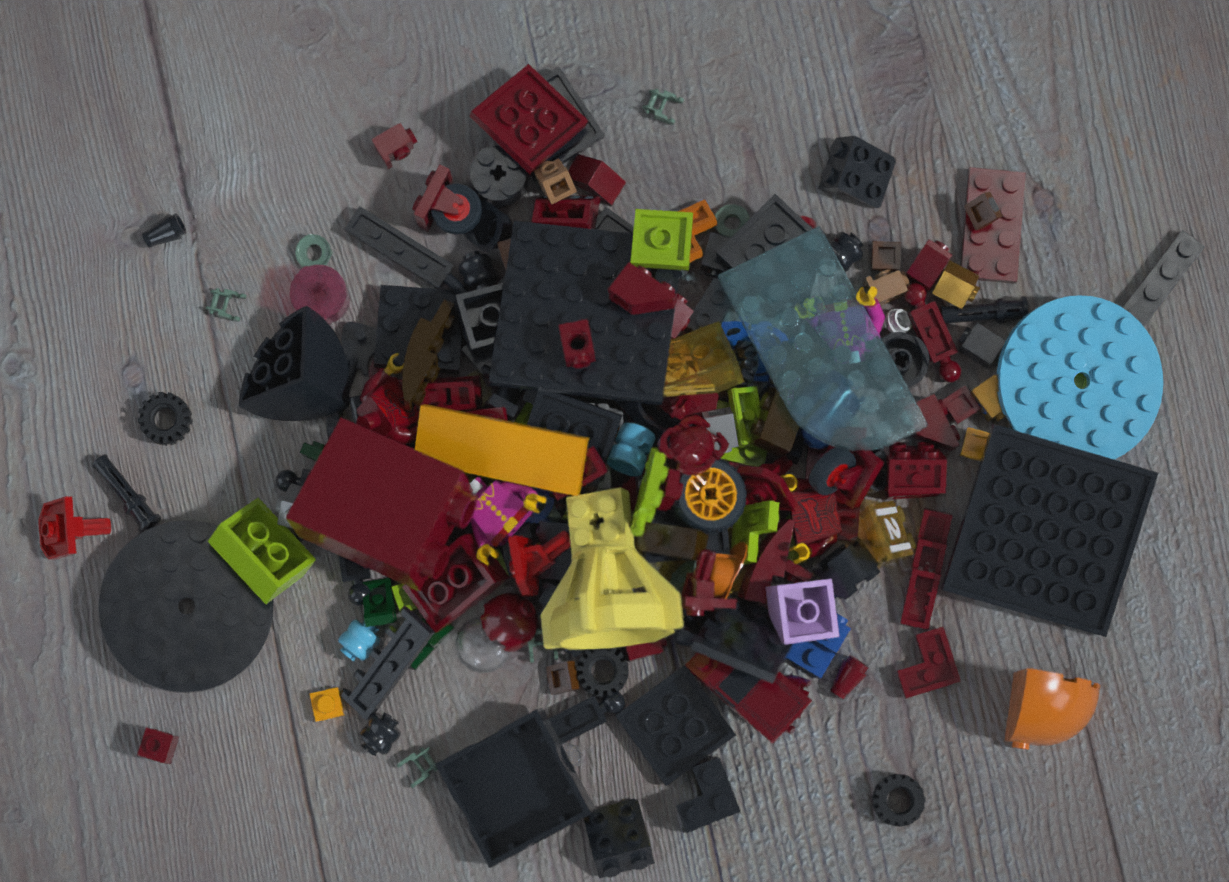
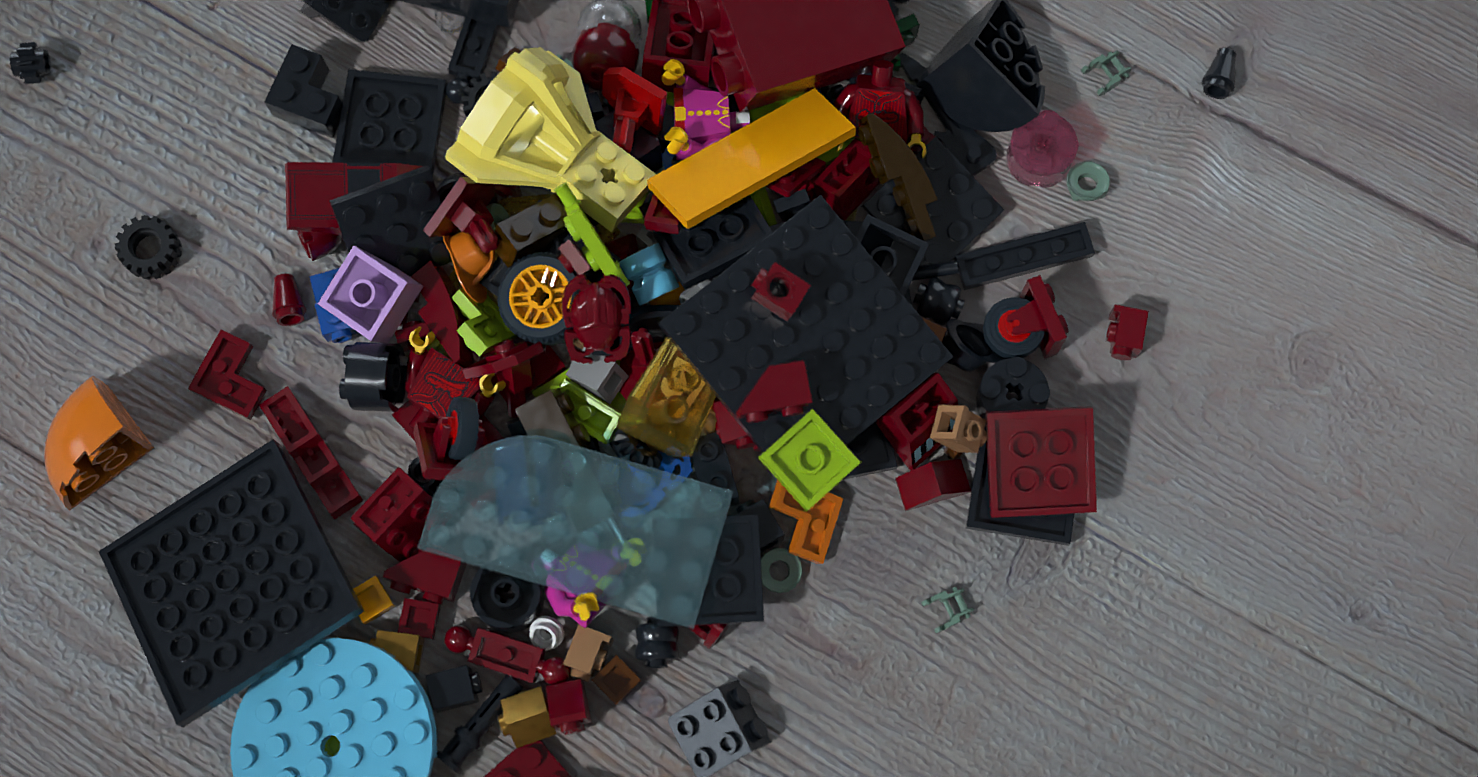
camera: 135 degrees right, 5 degrees down
(886, 533) = (367, 437): clear yellow slope -> none

